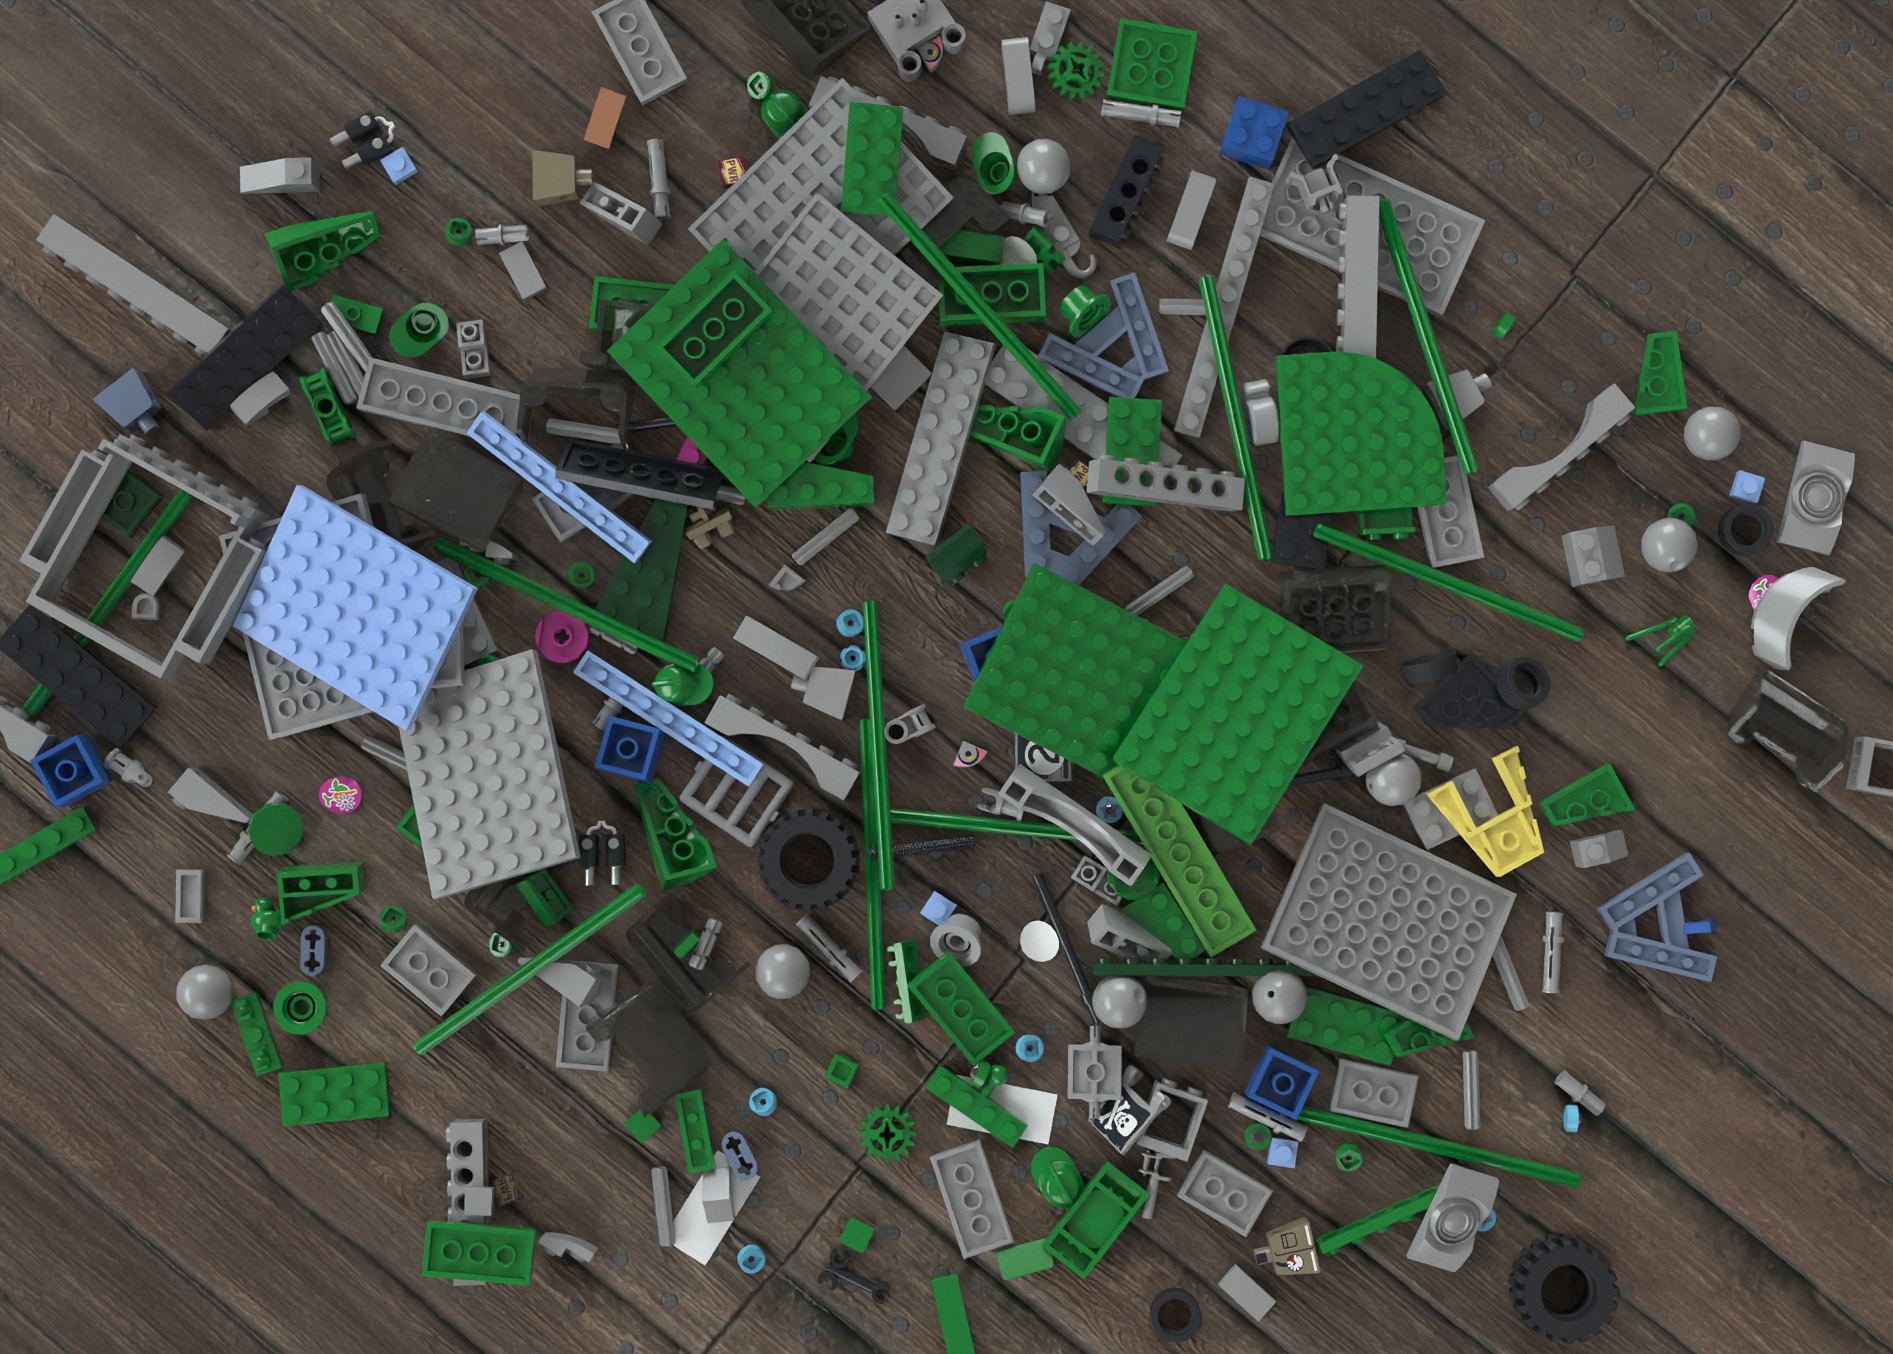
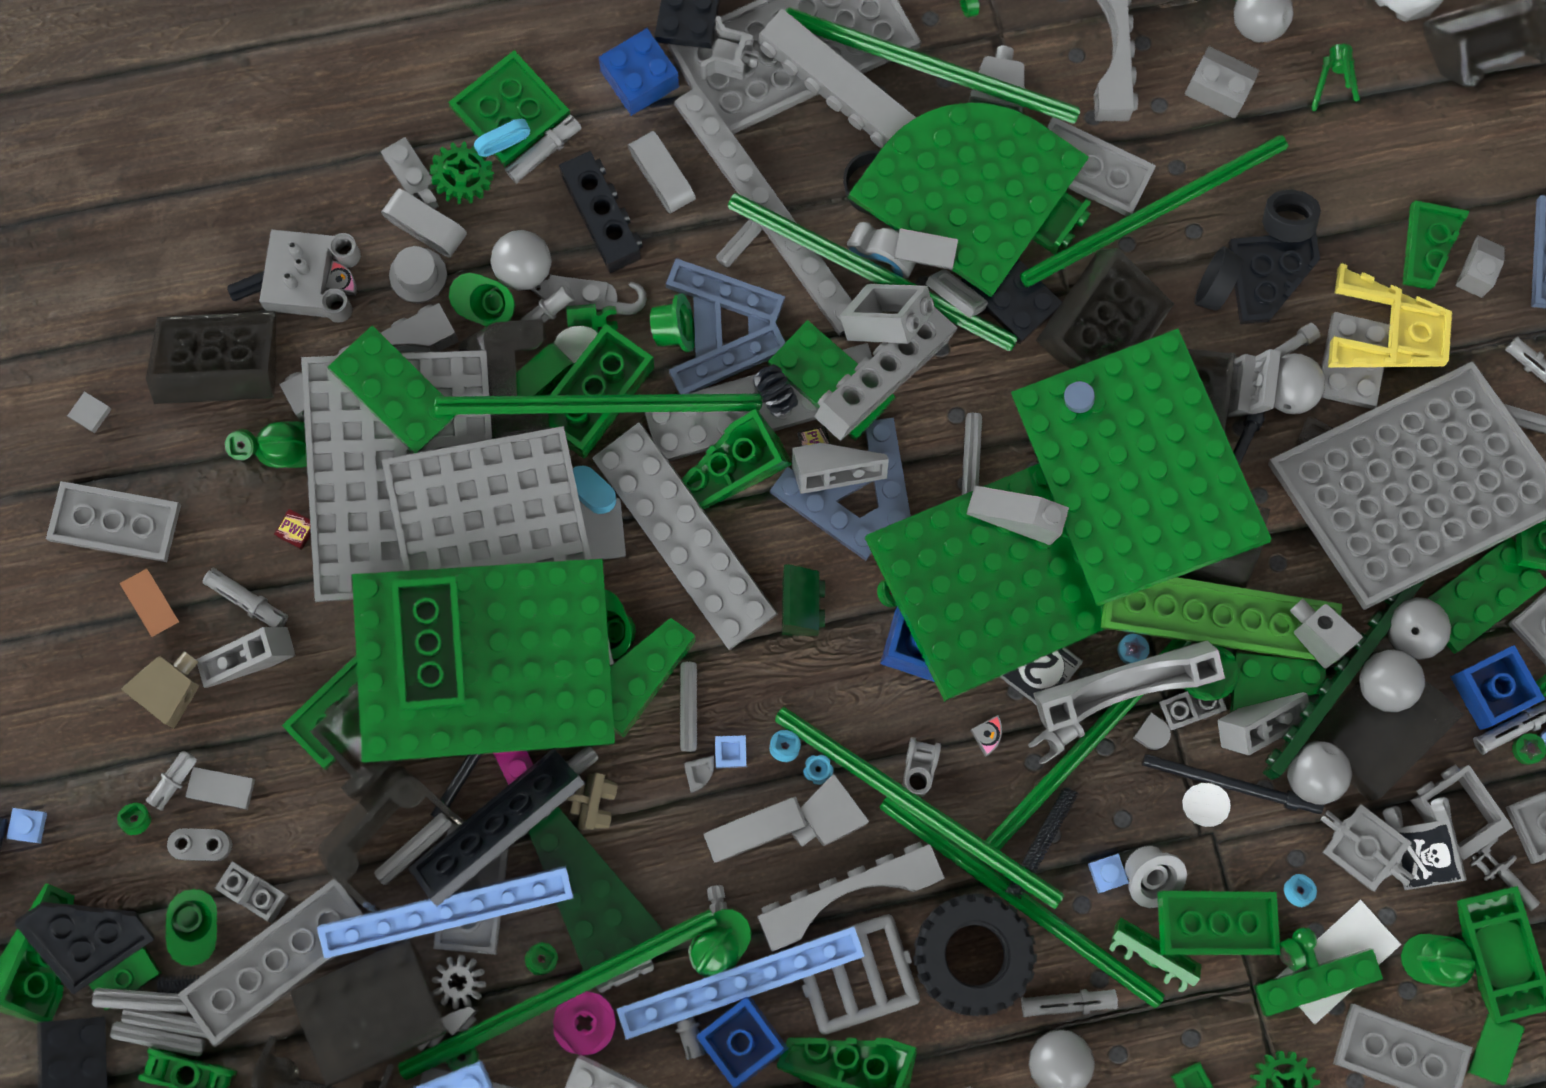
camera: 60 degrees left, 10 degrees down
(355, 267) = (82, 940): none -> black plate
(475, 288) = (198, 844): none -> light grey plate
(531, 527) = (462, 971): none -> light grey gear
(817, 589) = (730, 751): none -> light blue plate
(921, 350) = (594, 490): none -> medium azure tile
(979, 103) = (418, 274): none -> light grey piece
(1060, 867) = (1153, 733): none -> light grey tile
(1089, 419) = (775, 390): none -> black gear
(1122, 78) = (502, 137): none -> medium azure tile
(1136, 655) = (1019, 513): none -> light grey slope
(1193, 435) = (865, 322): none -> light grey window
(1222, 942) = (1324, 632): none -> light grey torso
(1224, 1004) = (1392, 681): none -> light grey piece
(1255, 634) = (1079, 397): none -> sand blue tile
(1269, 489) = (957, 293): none -> light grey tile
(1278, 442) = (926, 249): none -> light grey tile

